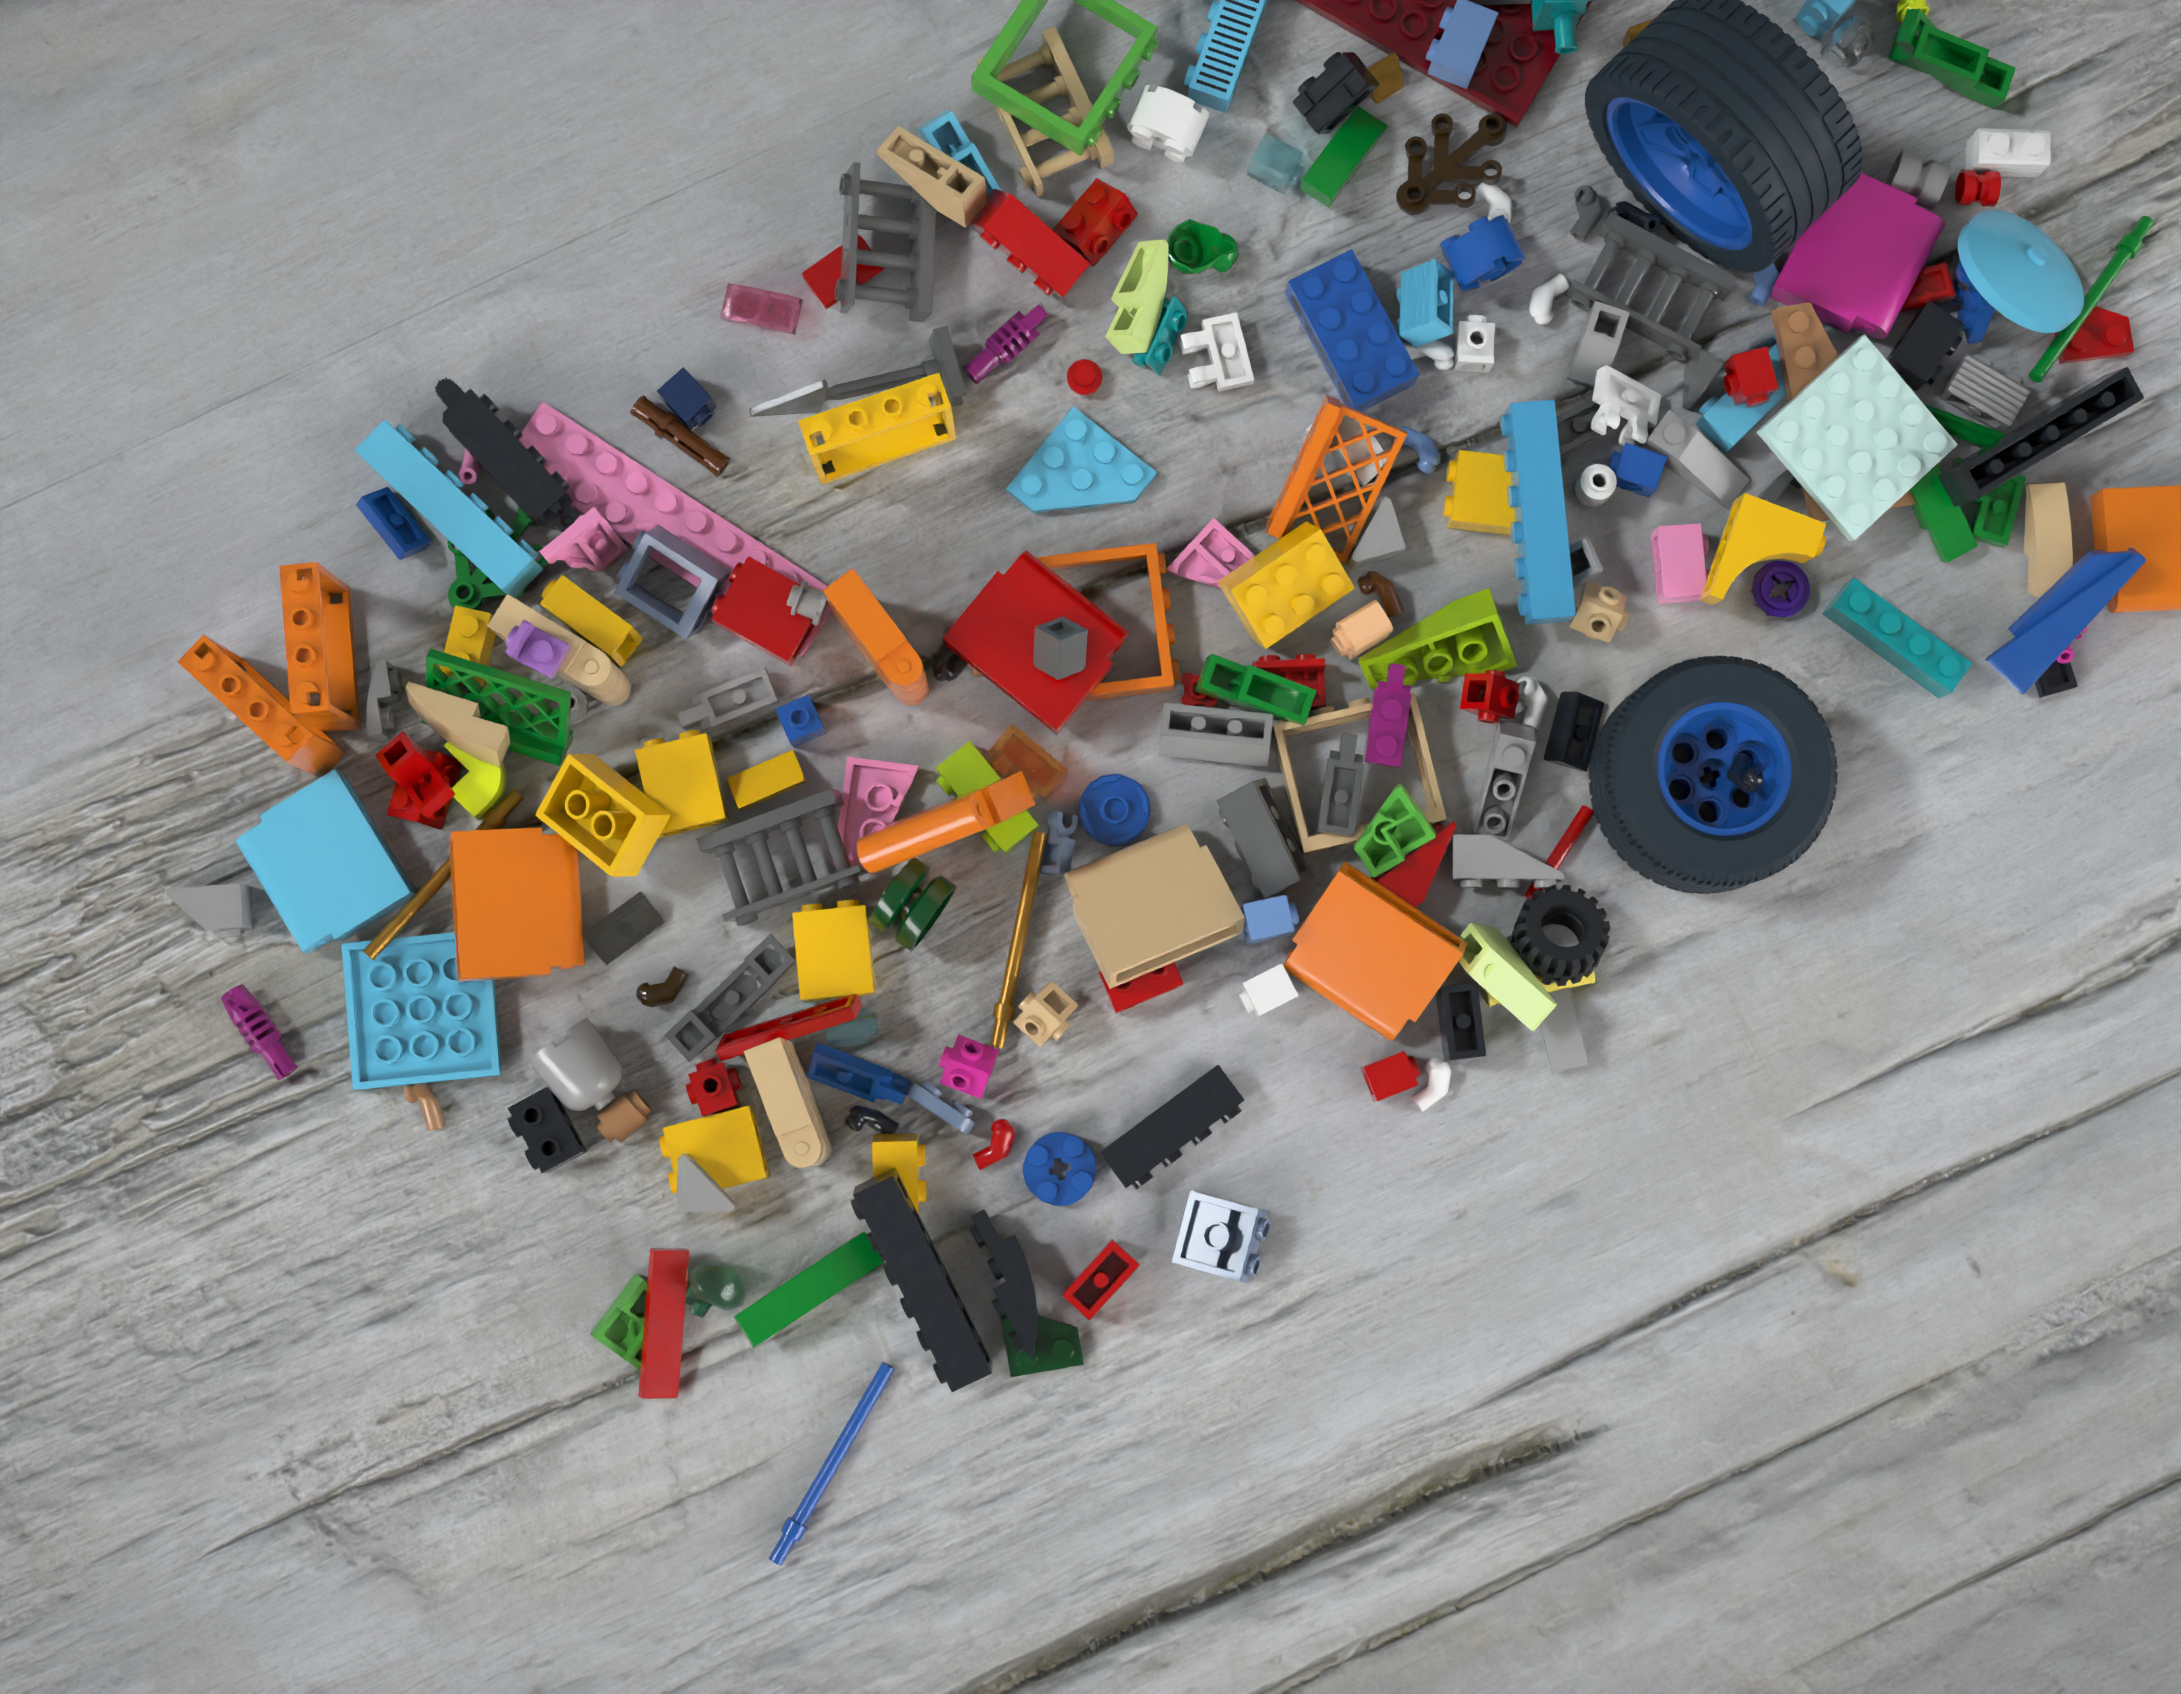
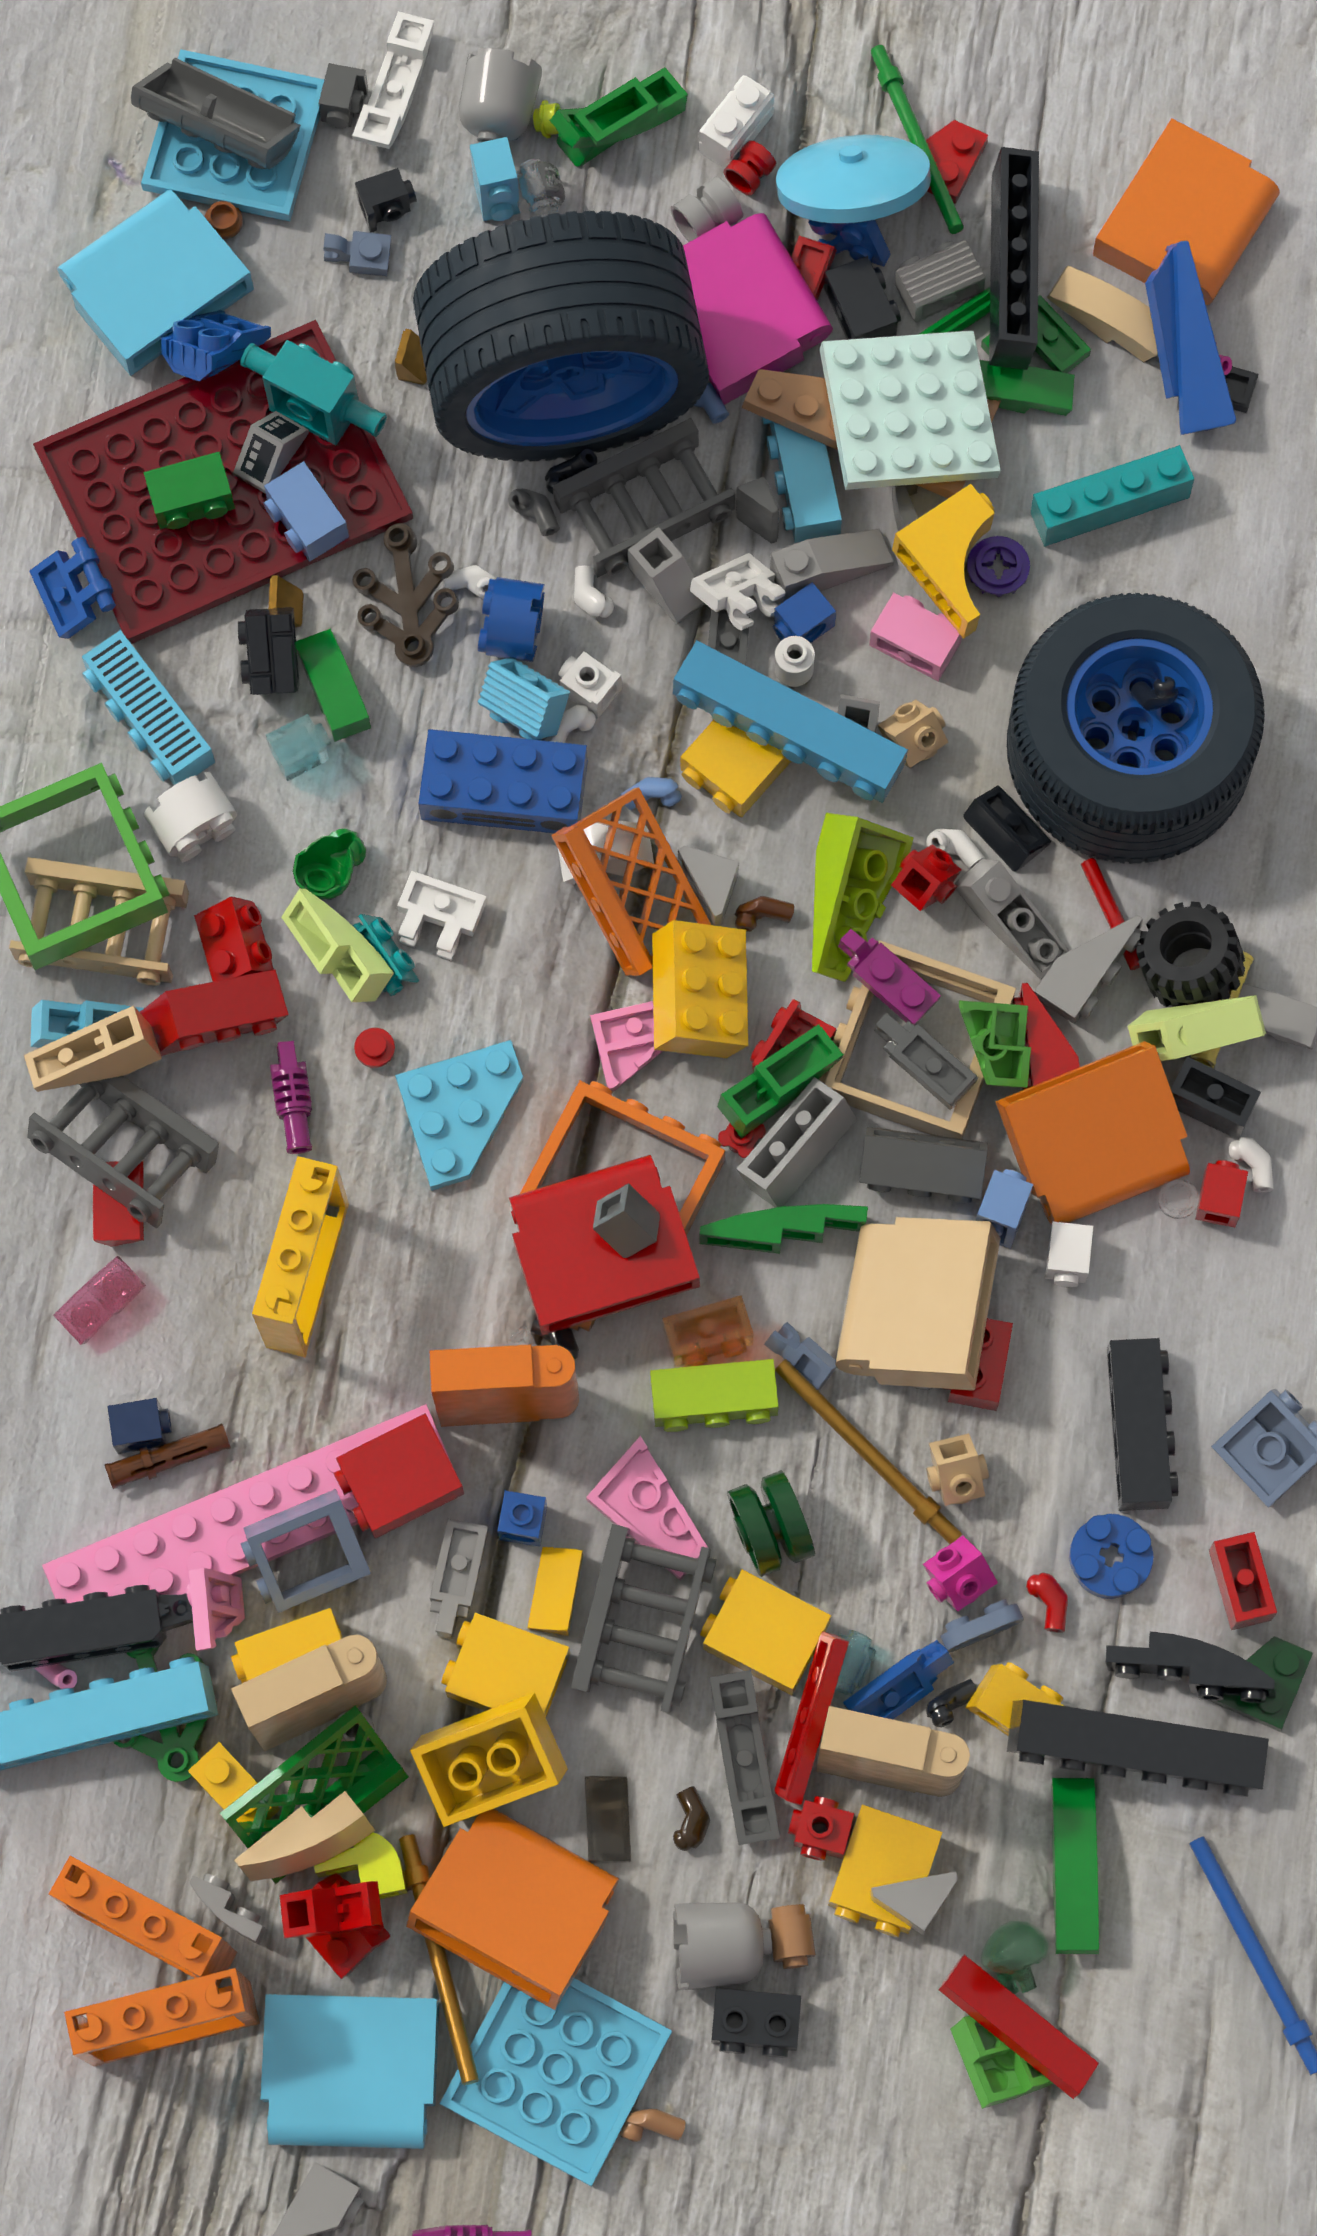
camera: 50 degrees left, 10 degrees down
(393, 523) = (60, 1785): blue plate -> none
(536, 649) = (306, 1692): medium lavender bracket -> none
(807, 602) = (422, 1425): light grey brick -> none
(811, 398) = (274, 1168): dark grey piece -> none
(945, 823) = (719, 1433): orange piece -> none
(1114, 810) = (802, 1285): blue tile -> none
(1139, 756) = (766, 1228): none -> green slope
(1361, 630) = (789, 950): light nougat brick -> none
(1750, 377) = (792, 463): red brick -> none

